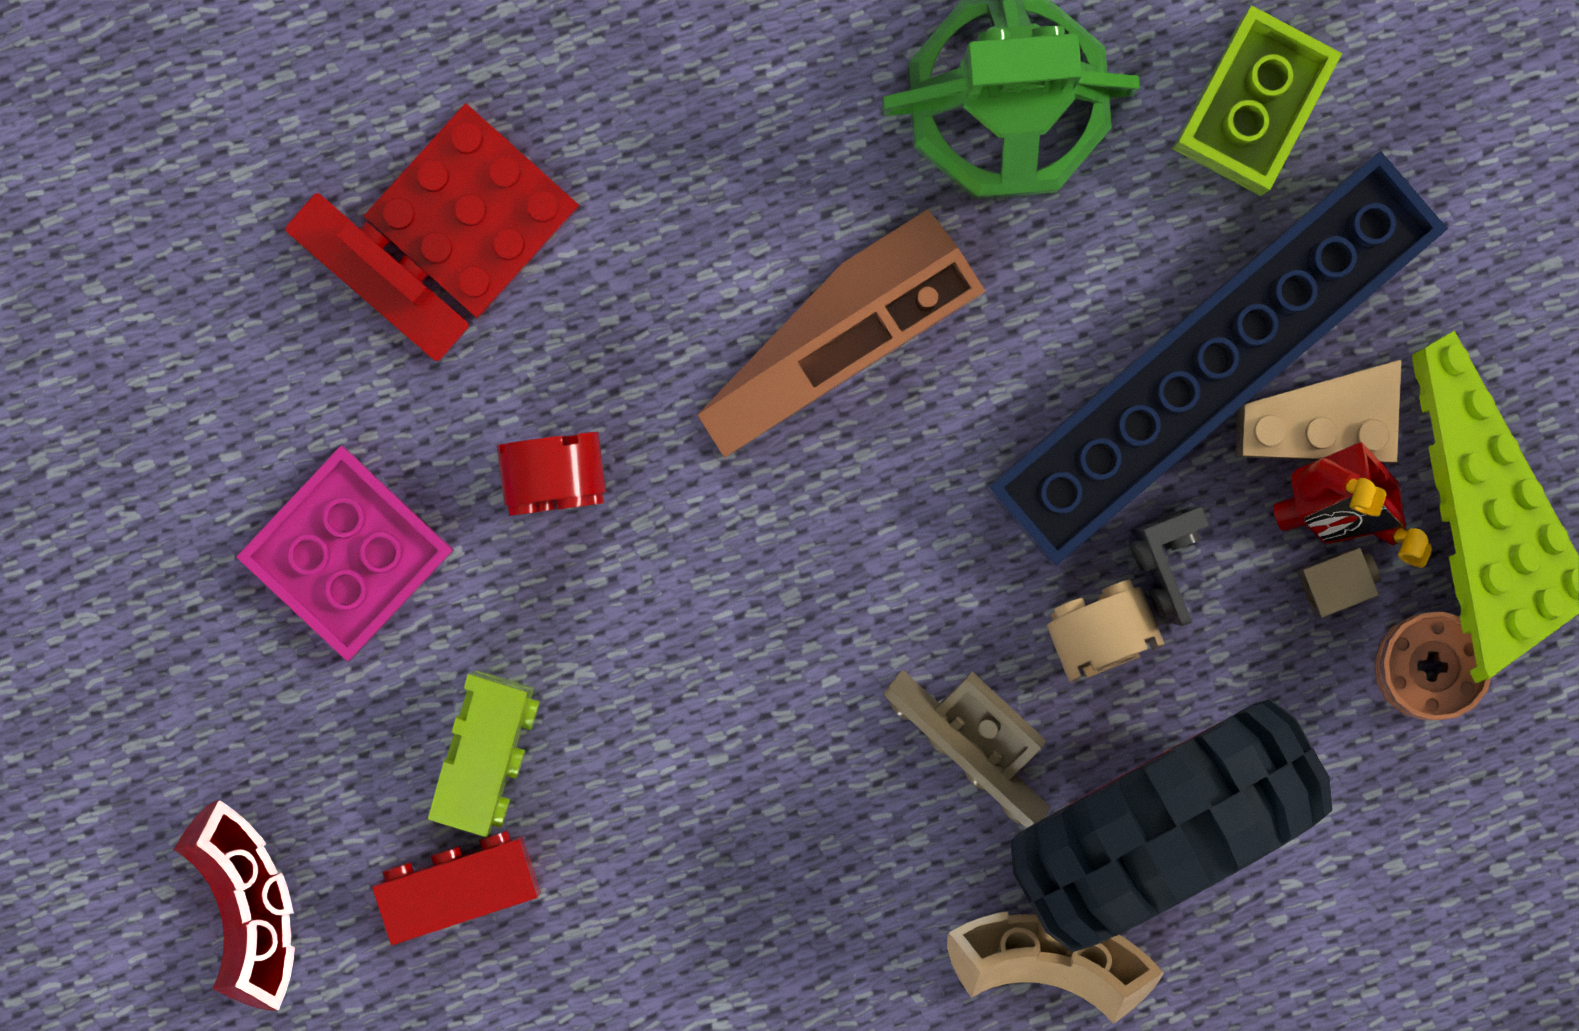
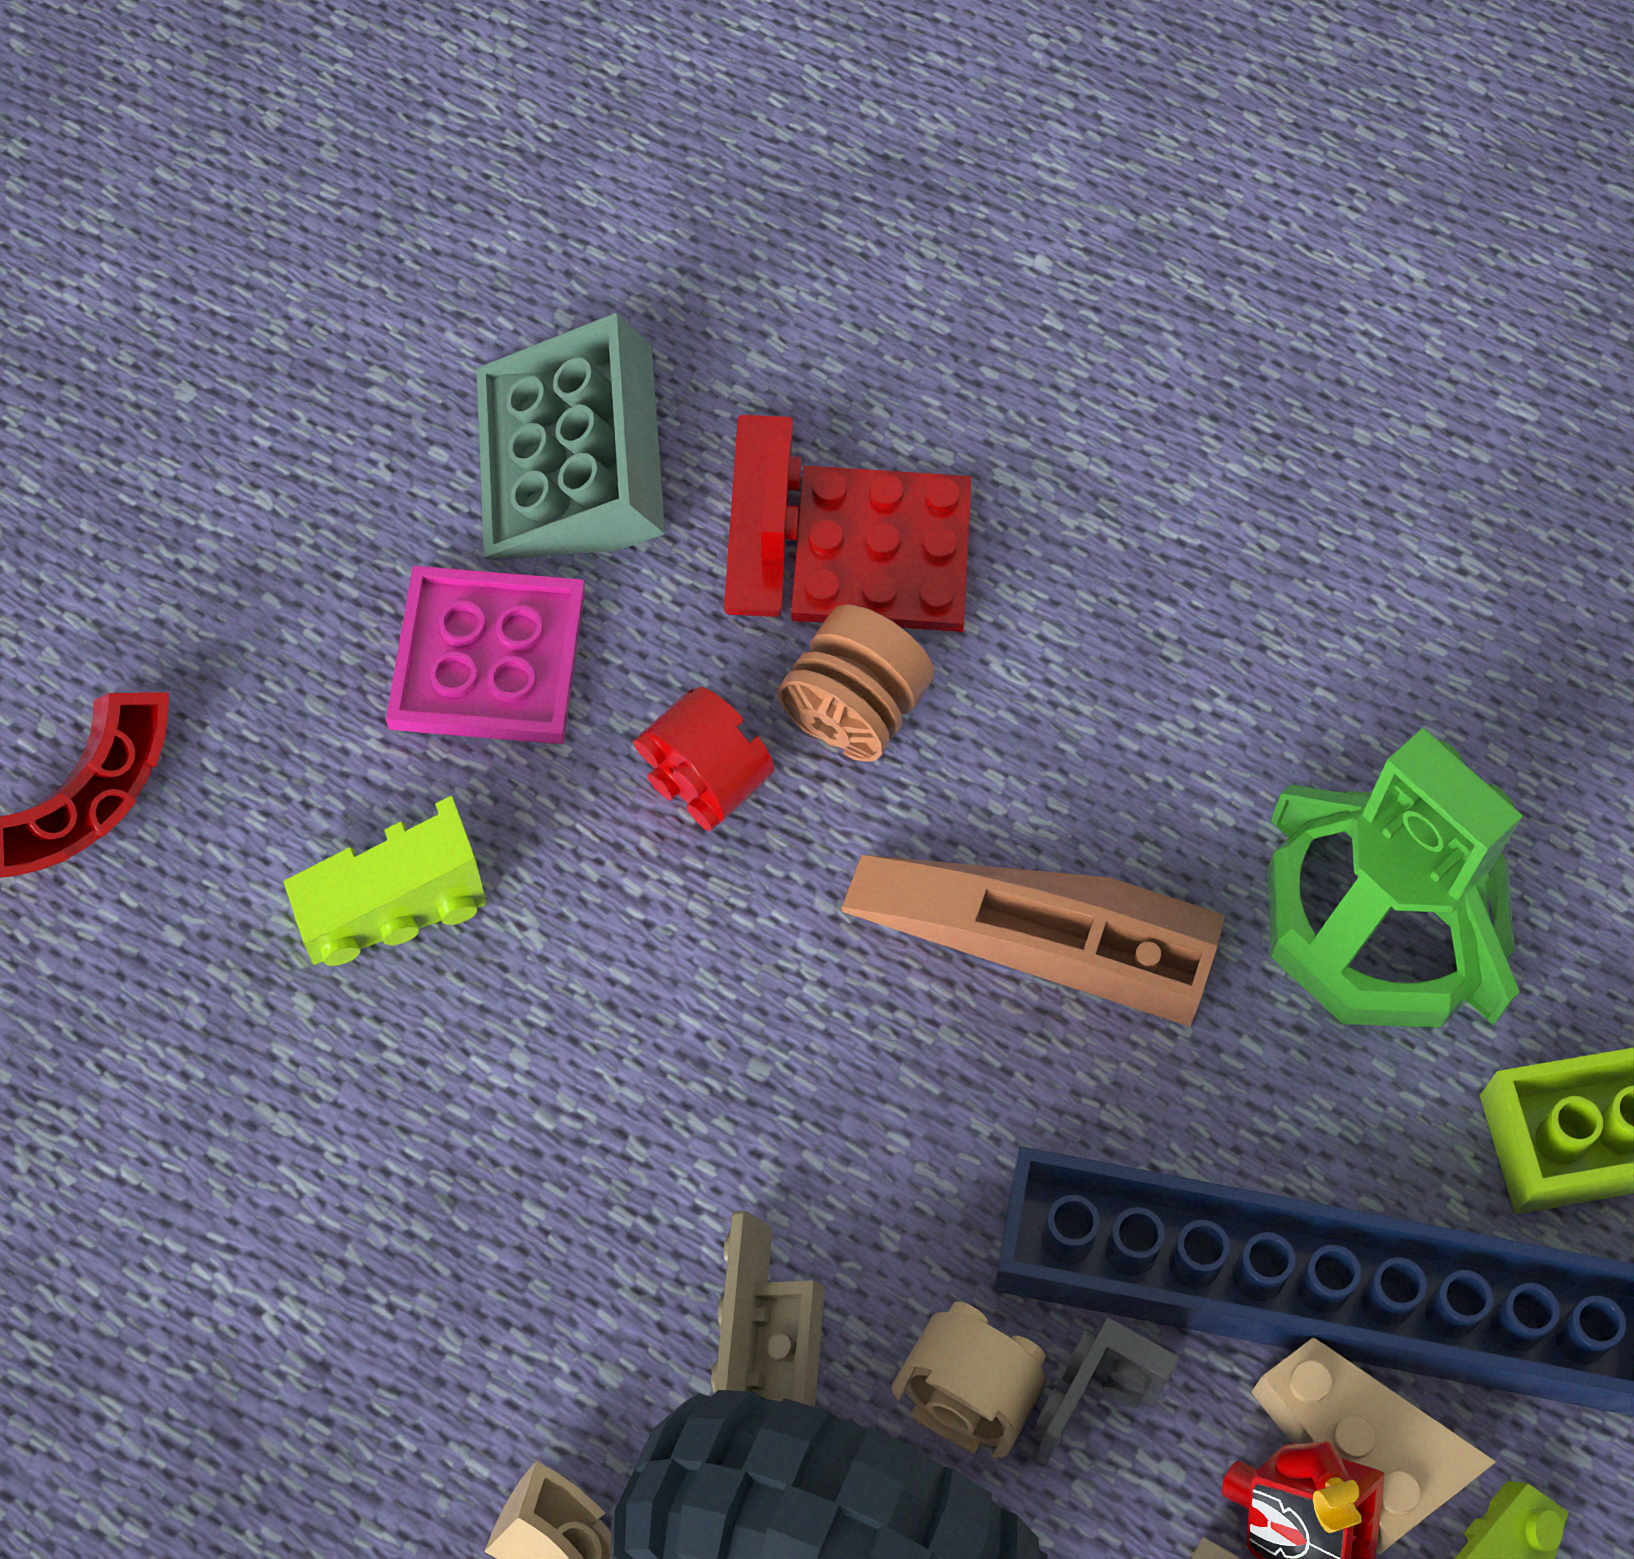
camera: 55 degrees right, 25 degrees down
(218, 369) = (570, 445): none -> sand green slope
(455, 887) = (234, 963): red brick -> none
(577, 325) = (856, 682): none -> nougat wheel

